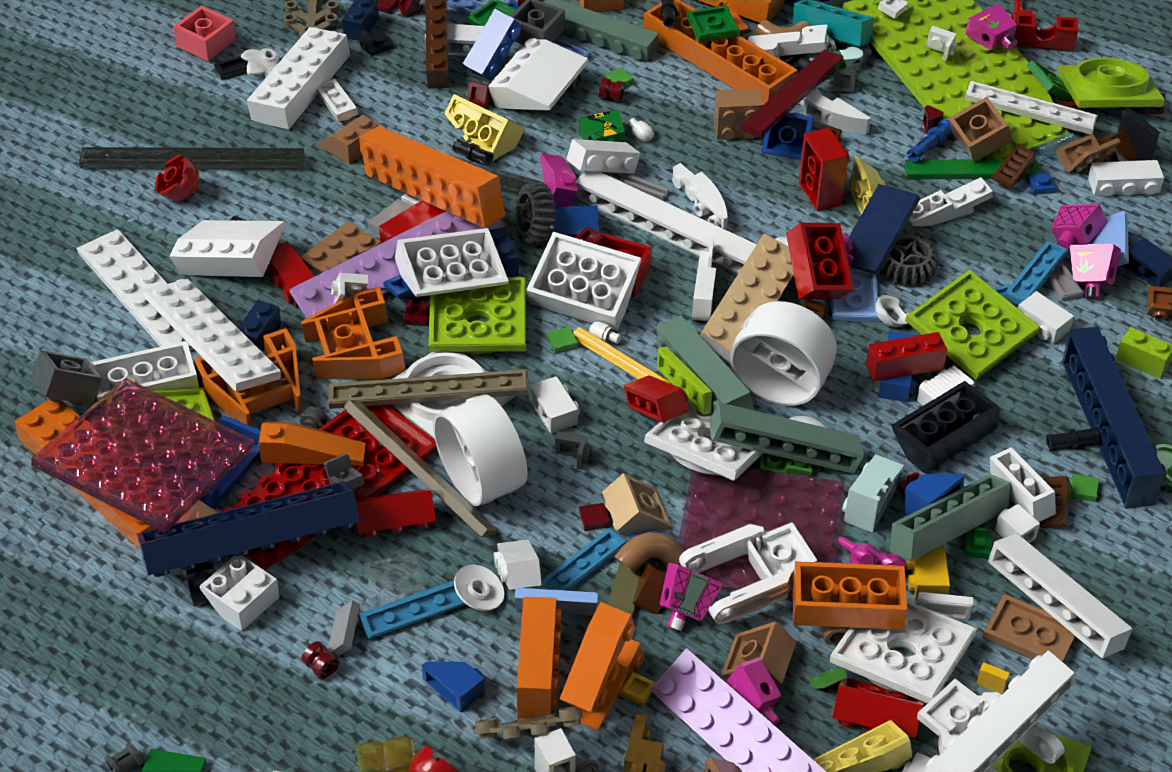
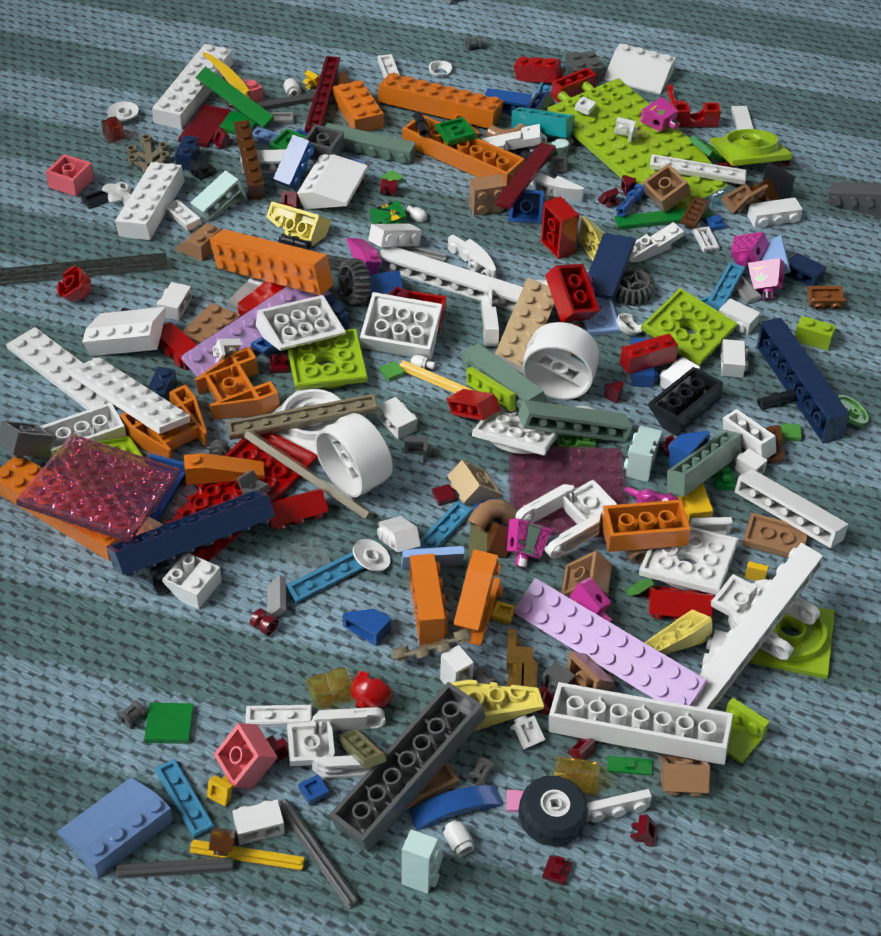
camera: 10 degrees left, 0 degrees up
(302, 213) = (176, 300): none -> white brick
(387, 80) = (218, 196): none -> light aqua wedge
(852, 402) = (614, 391): none -> dark red slope
(903, 132) = (608, 196): none -> dark red tile
(1025, 217) = (707, 247): none -> white tile
(1025, 374) = (733, 358): none -> white brick
(1108, 41) = (741, 117): none -> white tile

